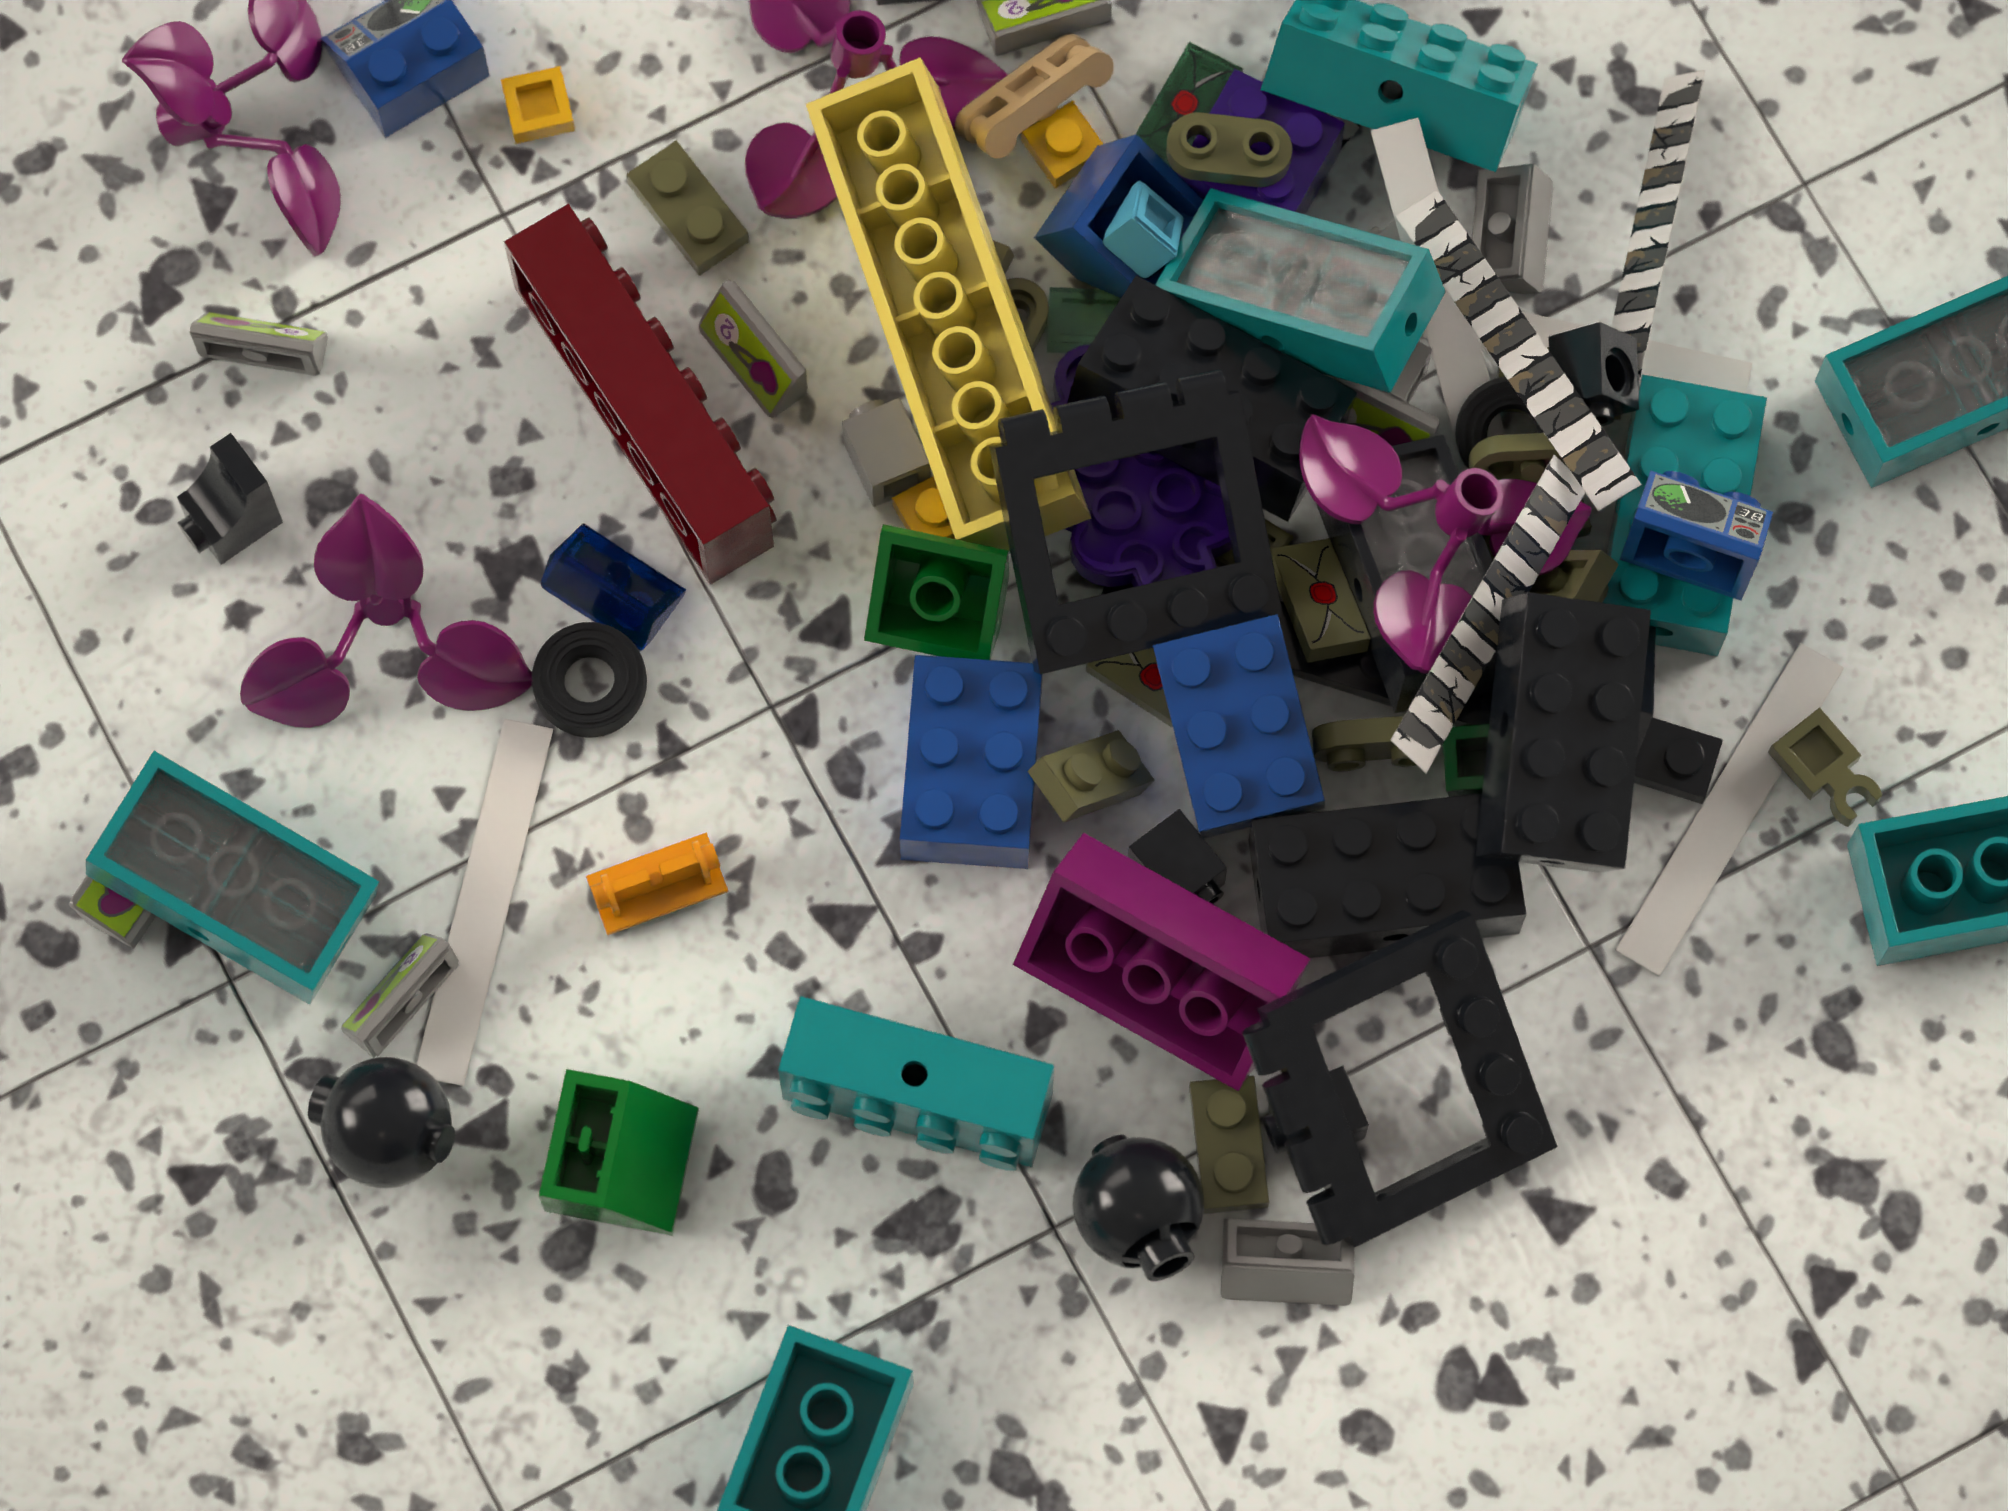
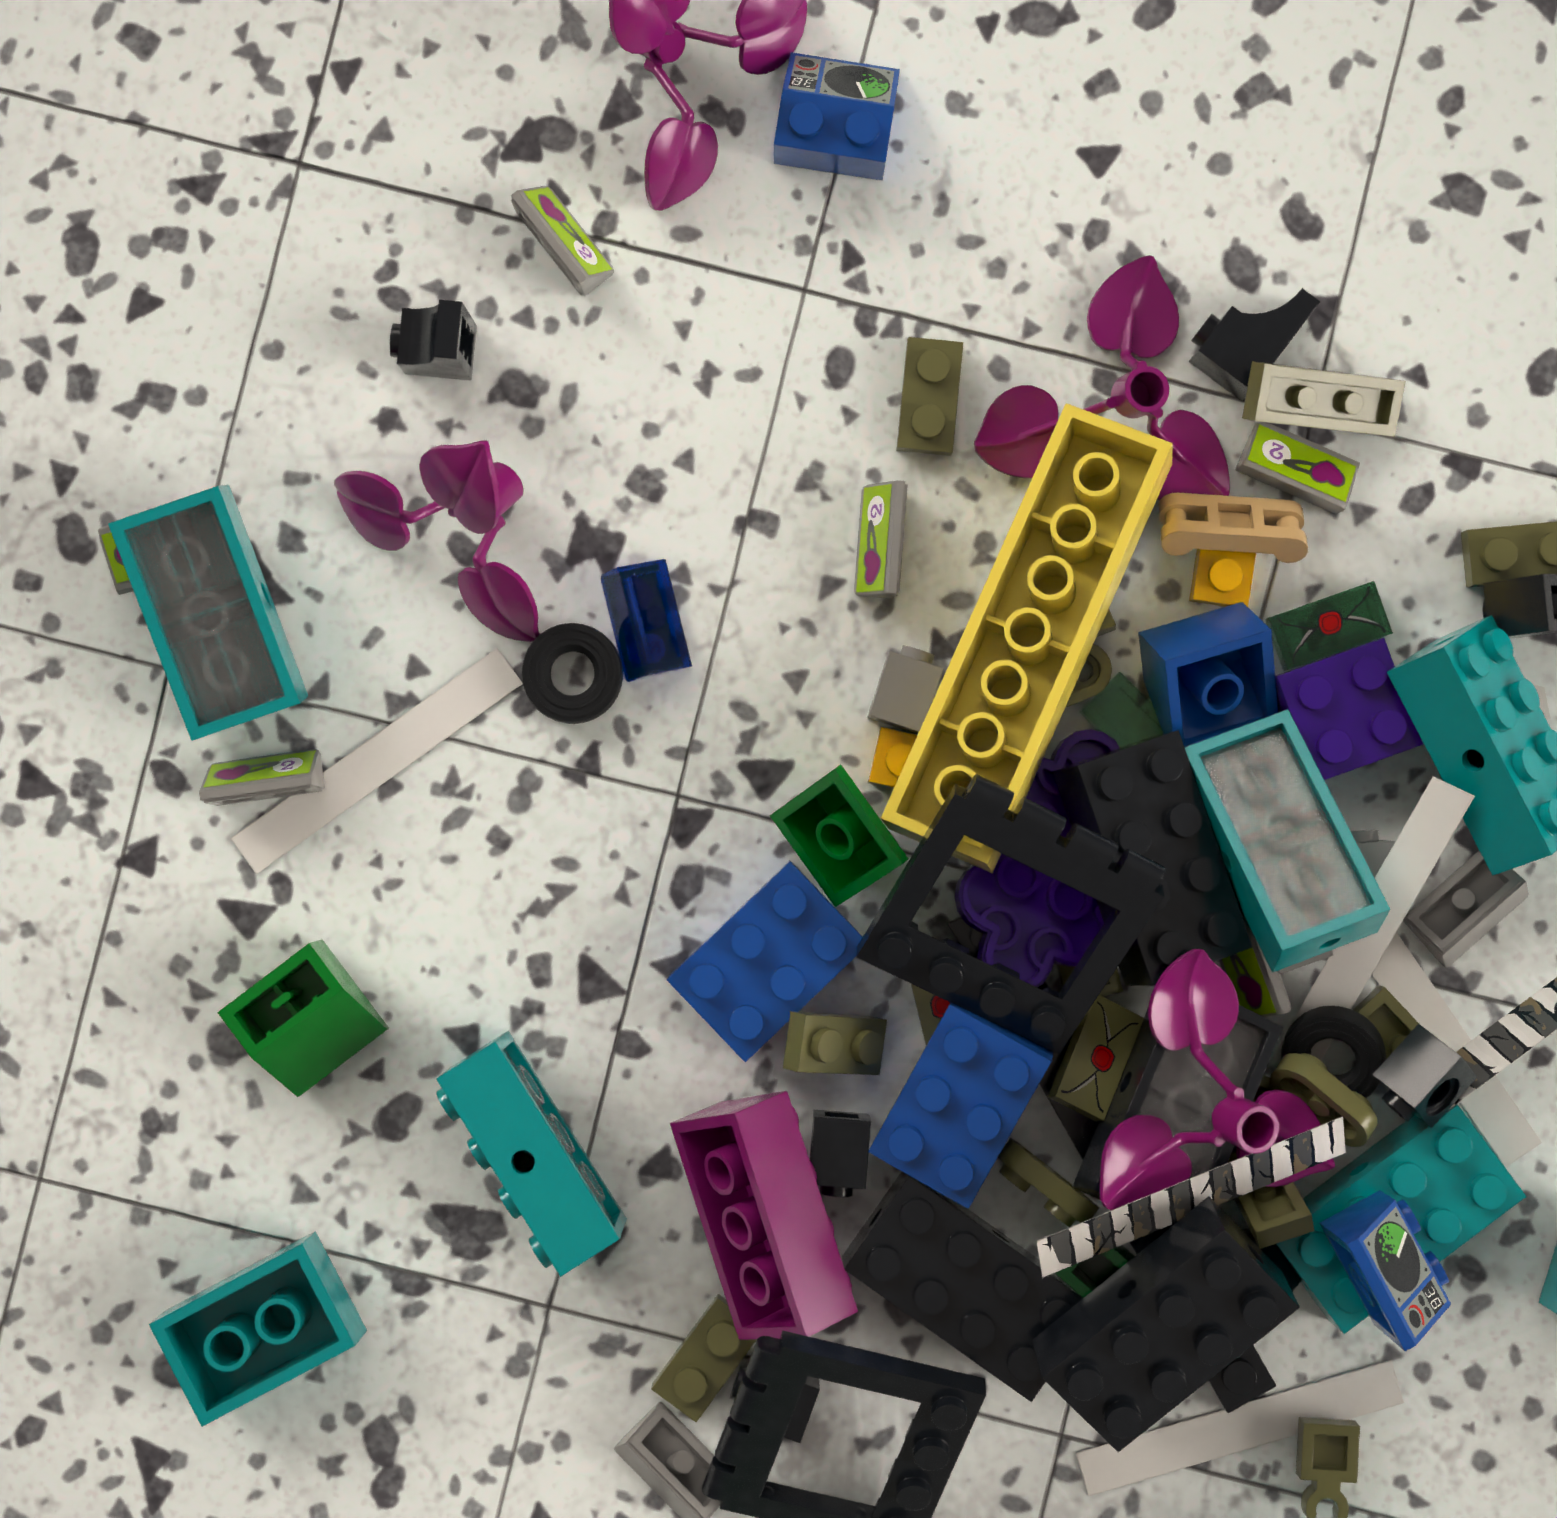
camera: 40 degrees right, 15 degrees up
(383, 1121) = (169, 864): black brick -> none
(537, 104) = (892, 233): yellow plate -> none
(641, 393) = (772, 505): dark red brick -> none
(657, 883) = (494, 852): light orange hinge -> none
(1139, 1205) = (603, 1361): black brick -> none
(1144, 231) = (1214, 702): medium azure slope -> none
(1229, 154) = (1324, 700): olive plate -> none
(1519, 352) = (1387, 1021): sticker -> none

